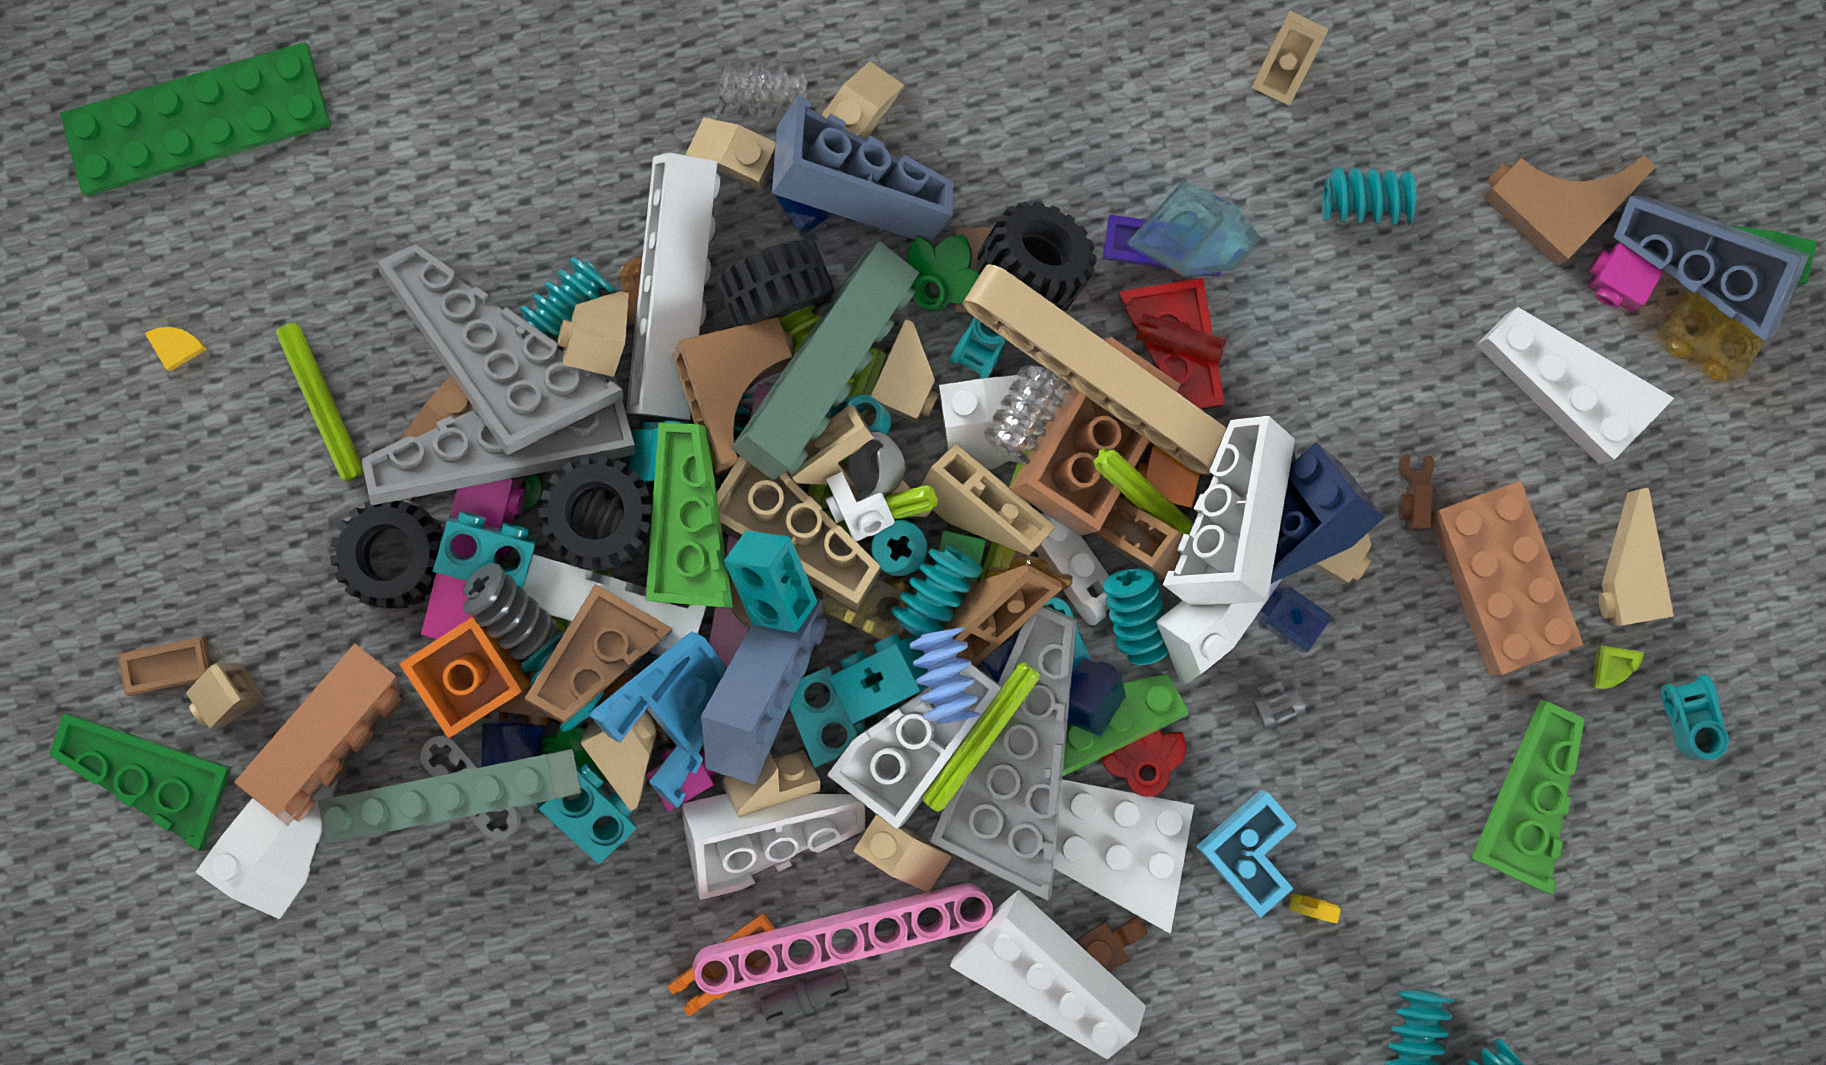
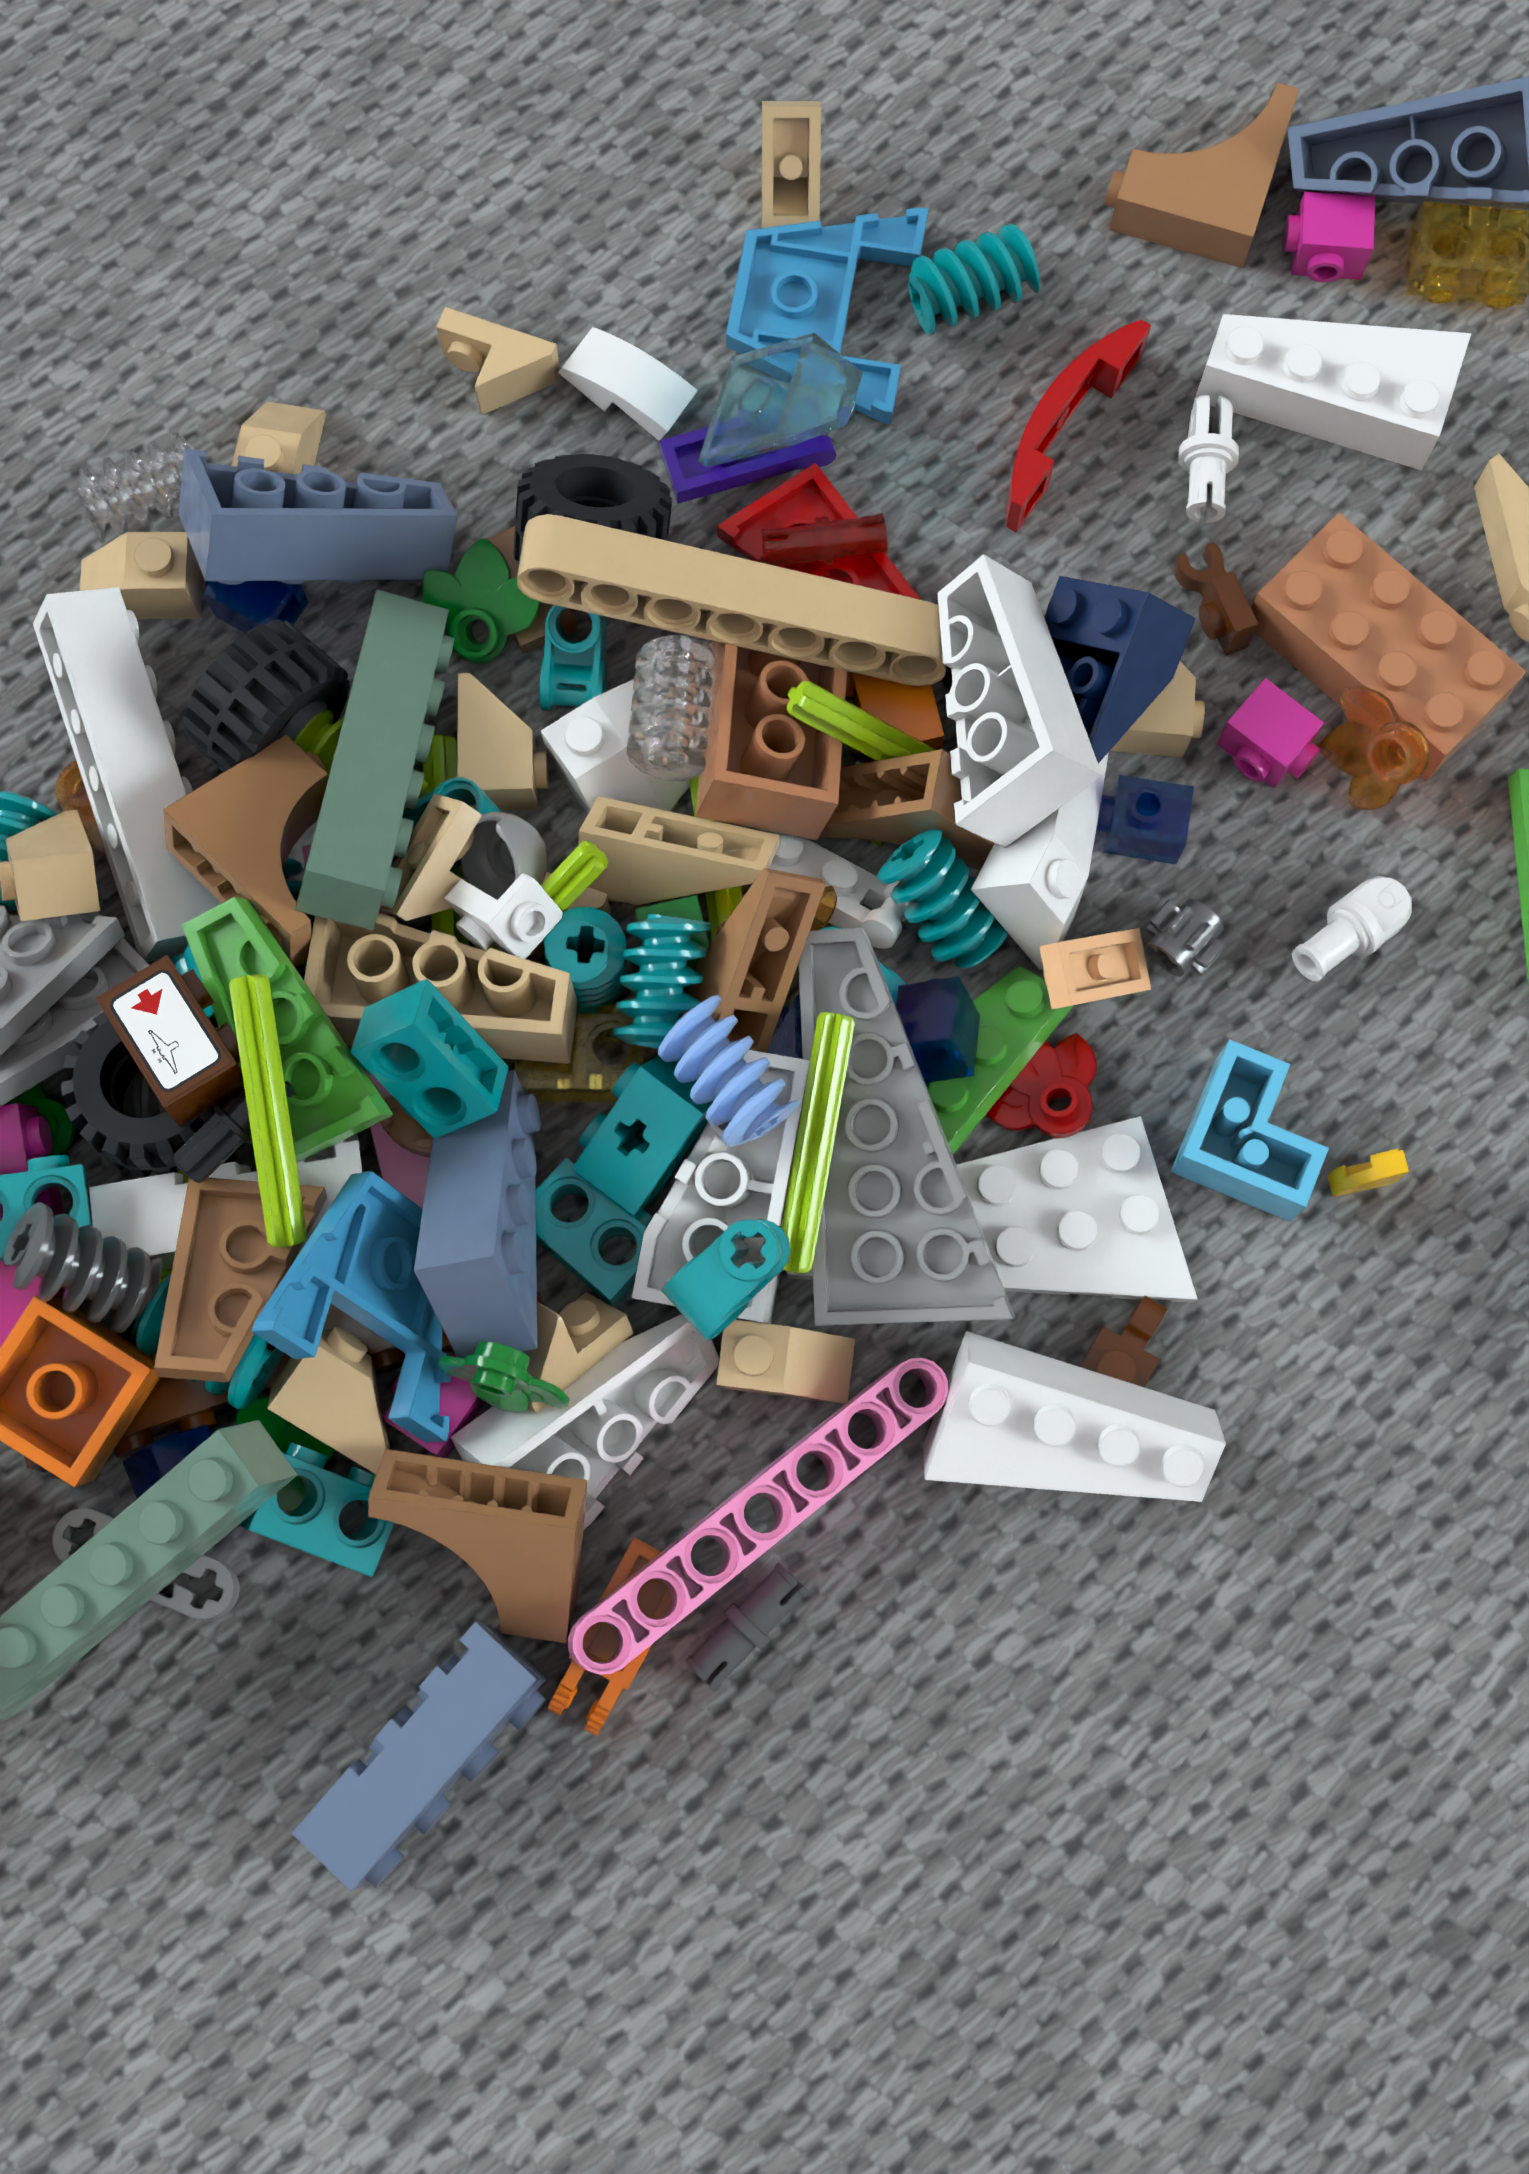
camera: 30 degrees left, 10 degrees down
(582, 981) = (421, 1758): none -> sand blue wedge
(622, 502) = (173, 1039): none -> brick
(634, 568) = (218, 1137): none -> black axle
(658, 575) = (268, 1110): none -> lime axle
(688, 876) = (504, 1522): none -> medium nougat arch
(726, 792) = (501, 1378): none -> green plate
(885, 796) = (719, 1281): none -> teal piece
(1040, 112) = (509, 360): none -> tan slope
(1110, 160) = (620, 373): none -> white slope
(1211, 702) = (1094, 968): none -> light nougat plate
(1250, 151) = (803, 283): none -> dark azure wing
(1392, 750) = (1355, 926): none -> white arm
(1402, 602) = (1271, 736): none -> dark pink brick
(1425, 299) = (1100, 366): none -> red slope
(1460, 395) = (1208, 458): none -> white arm
(1462, 644) = (1369, 748): none -> clear orange plate

